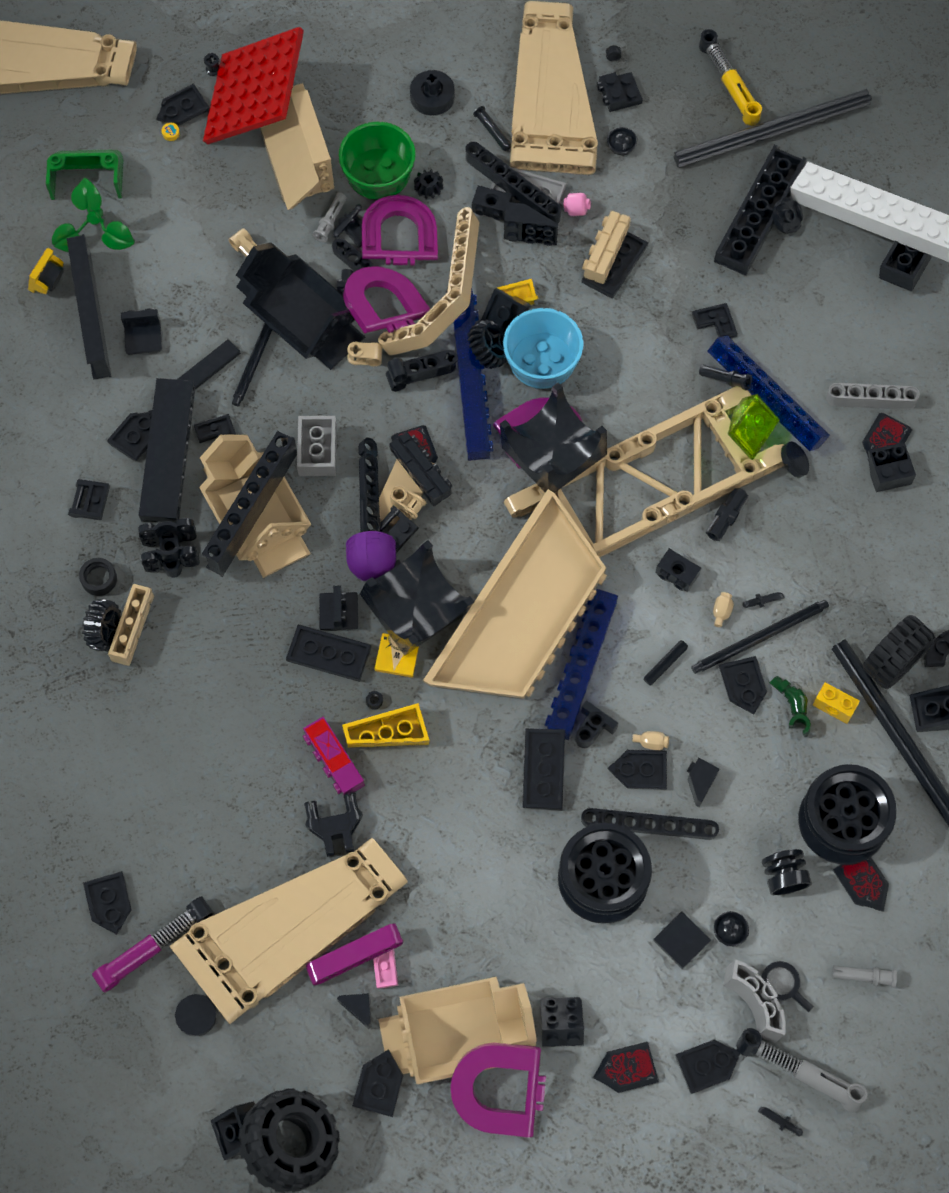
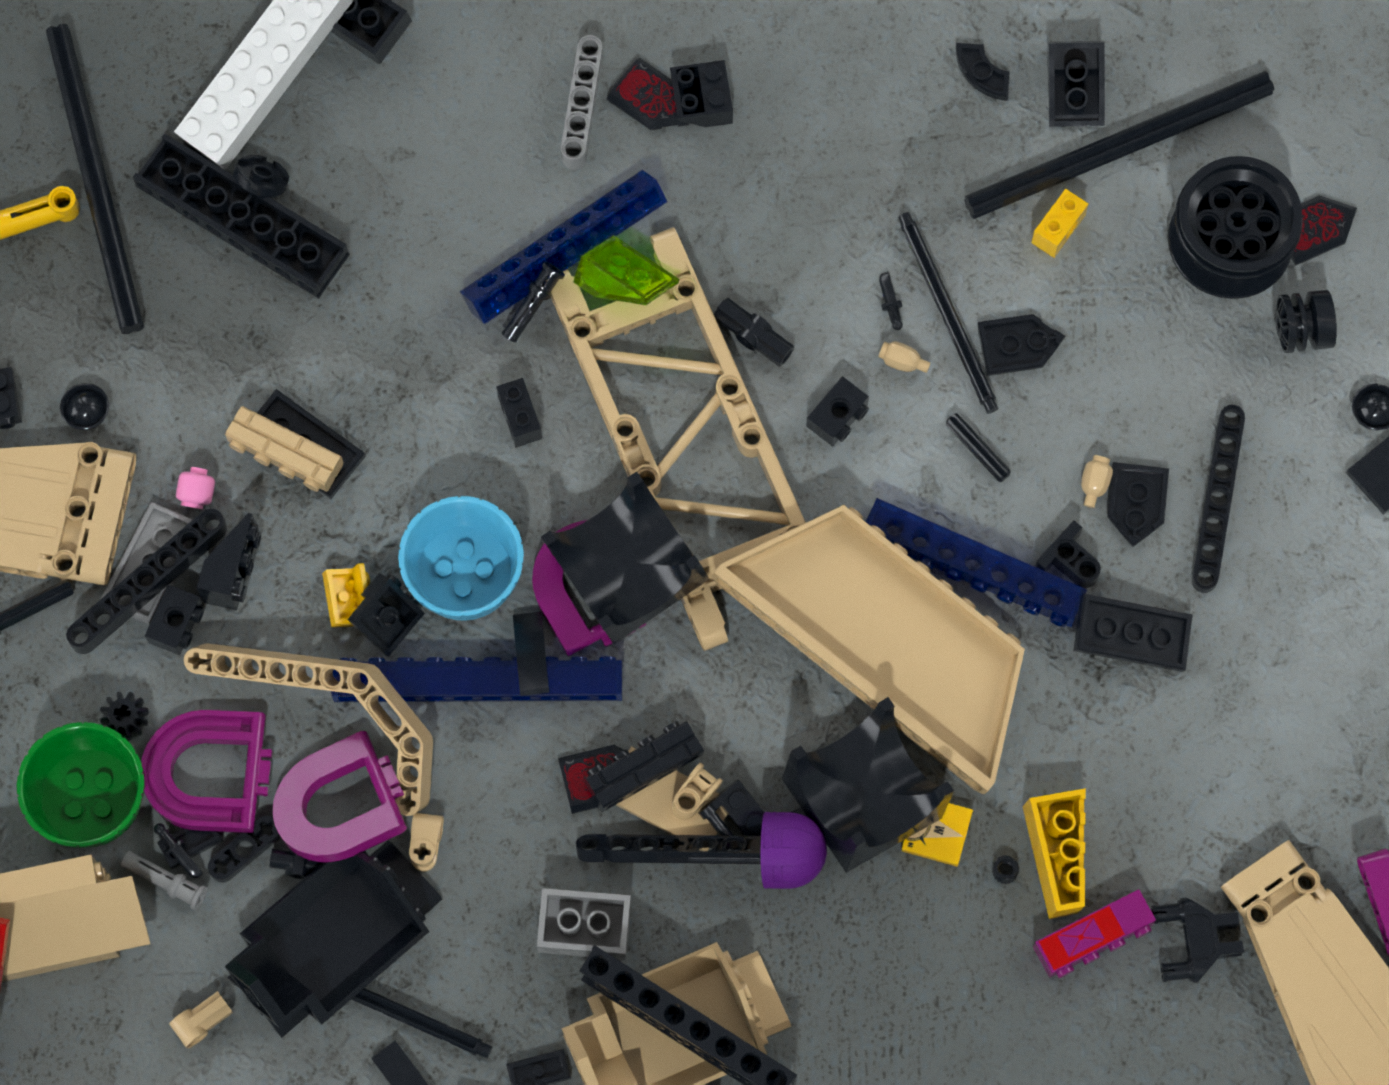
camera: 85 degrees left, 5 degrees up
(328, 653) = (927, 931): black piece -> none
(338, 610) = (859, 912): black bracket -> none
(401, 373) = (472, 781): black piece -> none
(486, 394) = (530, 653): none -> black slope
(487, 344) = (439, 644): black gear -> none
(591, 903) = (1341, 534): black wheel -> none
(650, 378) = (519, 412): none -> black brick
(701, 778) = (1161, 419): black slope -> none
(719, 317) = (419, 301): black tile -> none
(795, 458) = (678, 223): black tile -> none
(797, 701) = (1054, 274): dark green piece -> none
(898, 651) = (1004, 122): black tyre -> none

